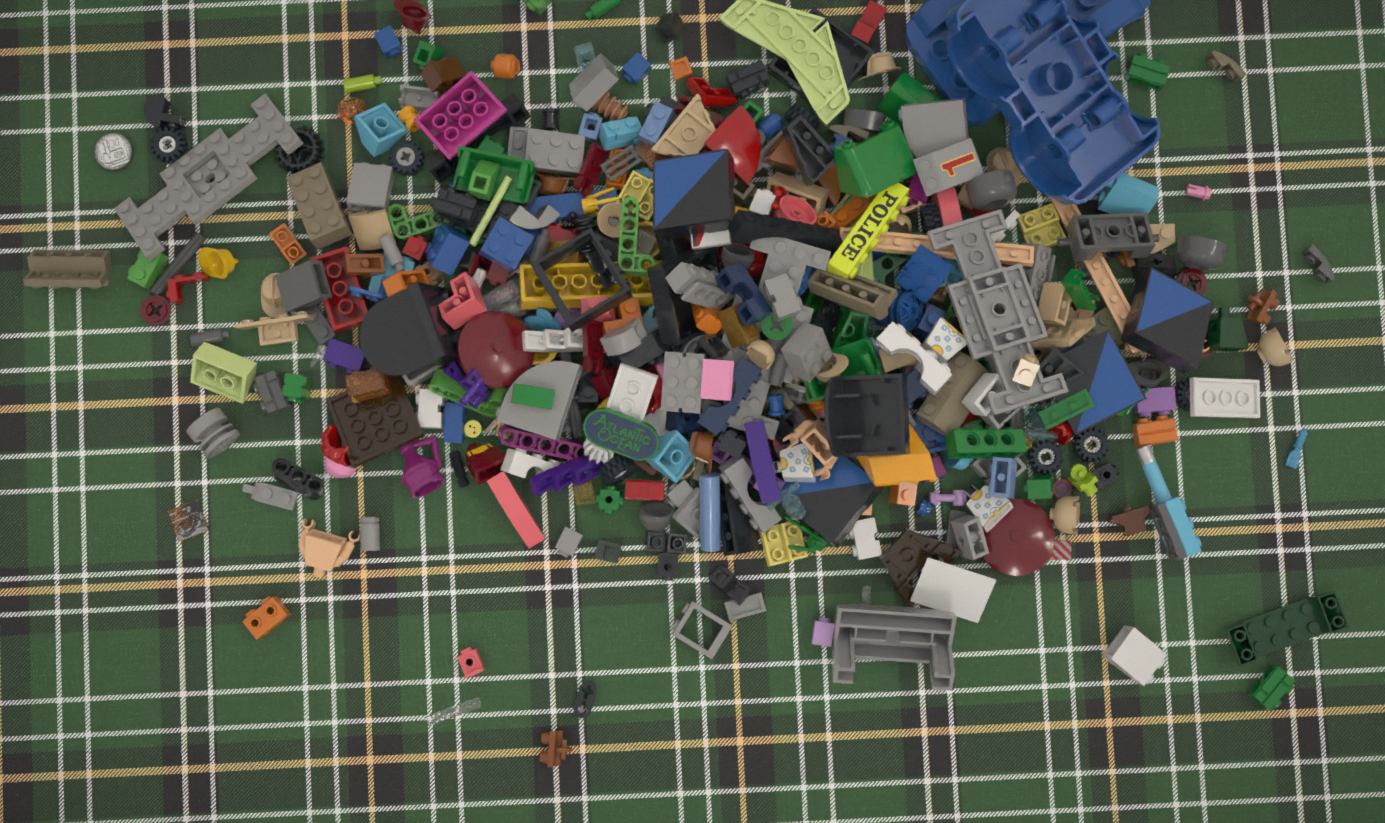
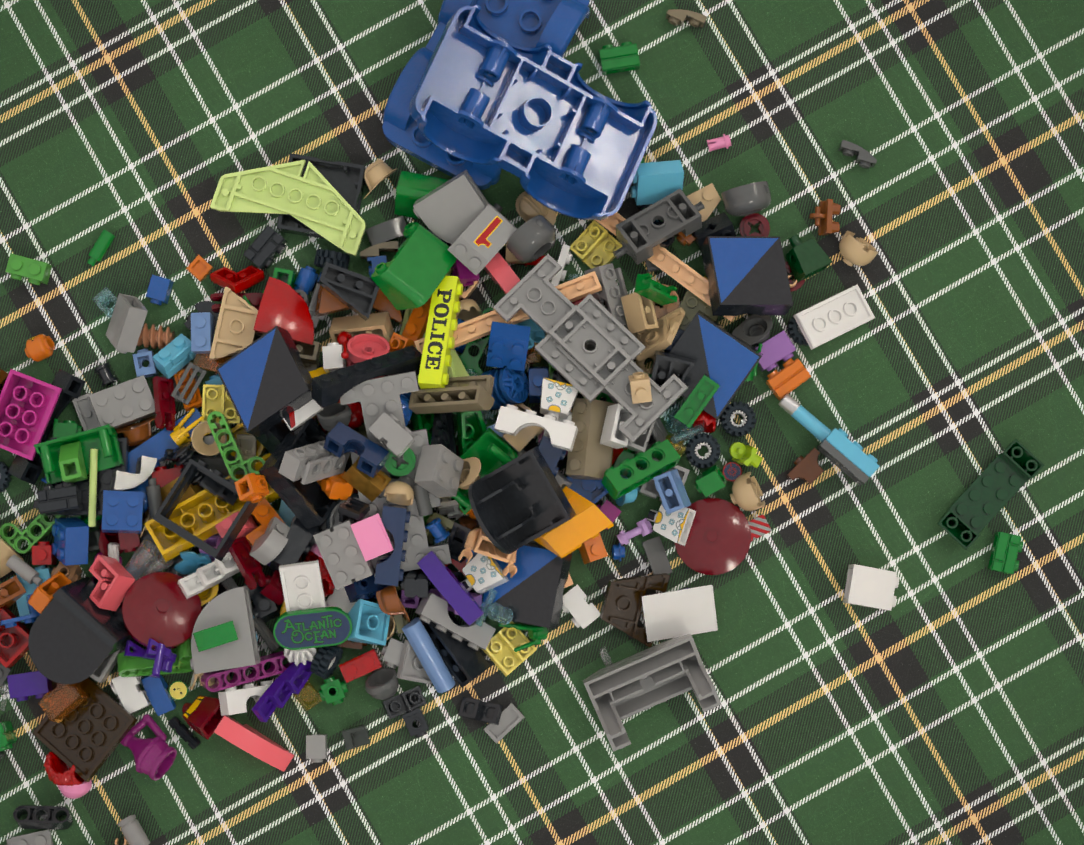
camera: 25 degrees left, 0 degrees up
(634, 280) = (252, 488): none -> orange brick
(669, 27) = (170, 236): pearl dark grey panel -> none
(718, 639) = (452, 770): light grey window -> none
(822, 632) = (584, 710): lavender brick -> none
(869, 21) = (347, 140): red brick -> none
(930, 218) = (491, 290): black bush -> none
(970, 537) = (671, 558): light grey brick -> none
(1112, 472) = (756, 443): black brick -> none
(1294, 456) = (922, 335): dark azure piece -> none

